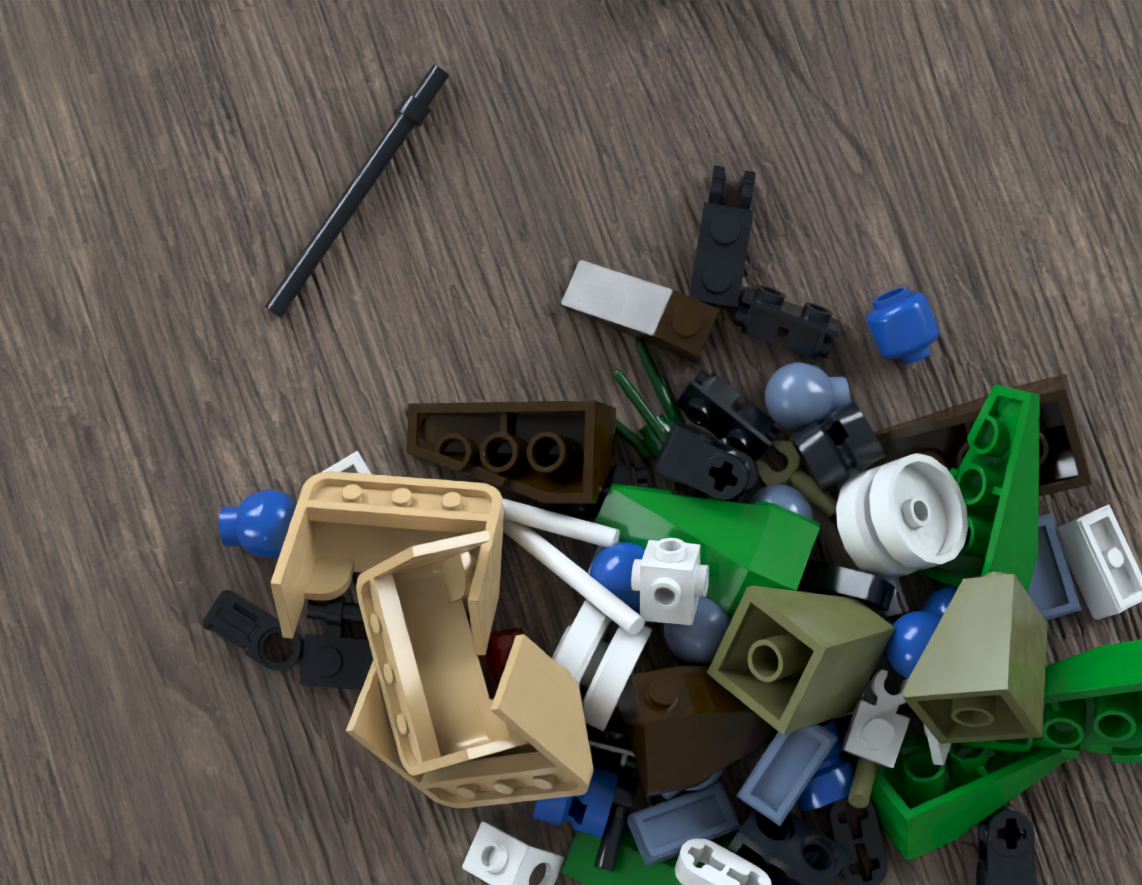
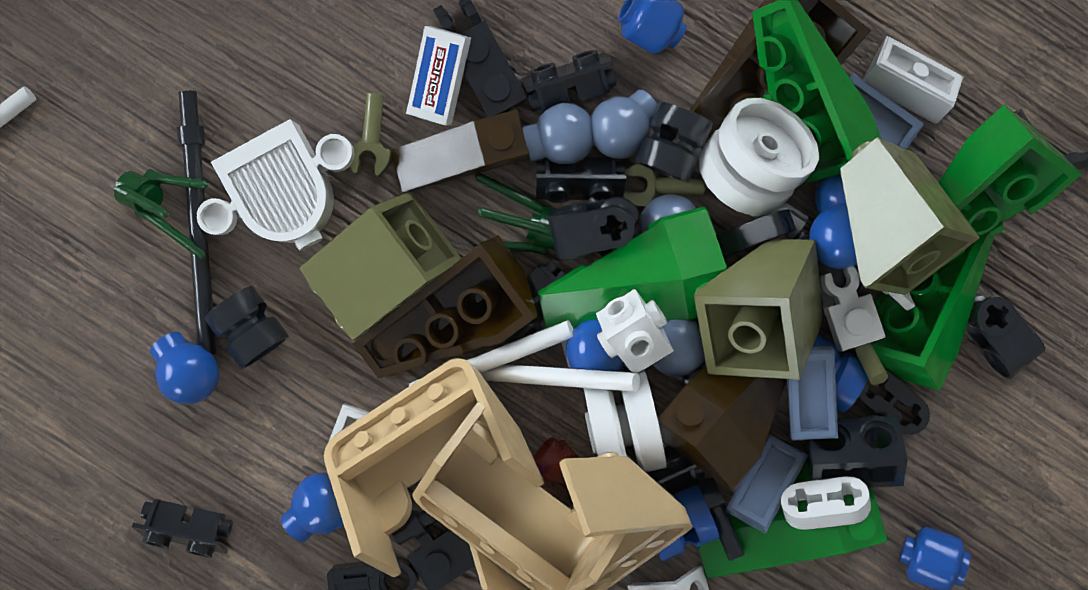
camera: 40 degrees left, 5 degrees up
(113, 436) = (166, 525): none -> black hinge
(244, 309) = (184, 369): none -> blue piece
(328, 314) = (246, 327): none -> black wheel
(331, 132) = (145, 197): none -> dark green plant
(455, 214) = (278, 186): none -> white piece
(490, 349) = (379, 263): none -> olive slope
(569, 235) = (371, 136): none -> olive bar
(673, 226) = (438, 75): none -> tile
(741, 362) = (560, 135): none -> sand blue piece

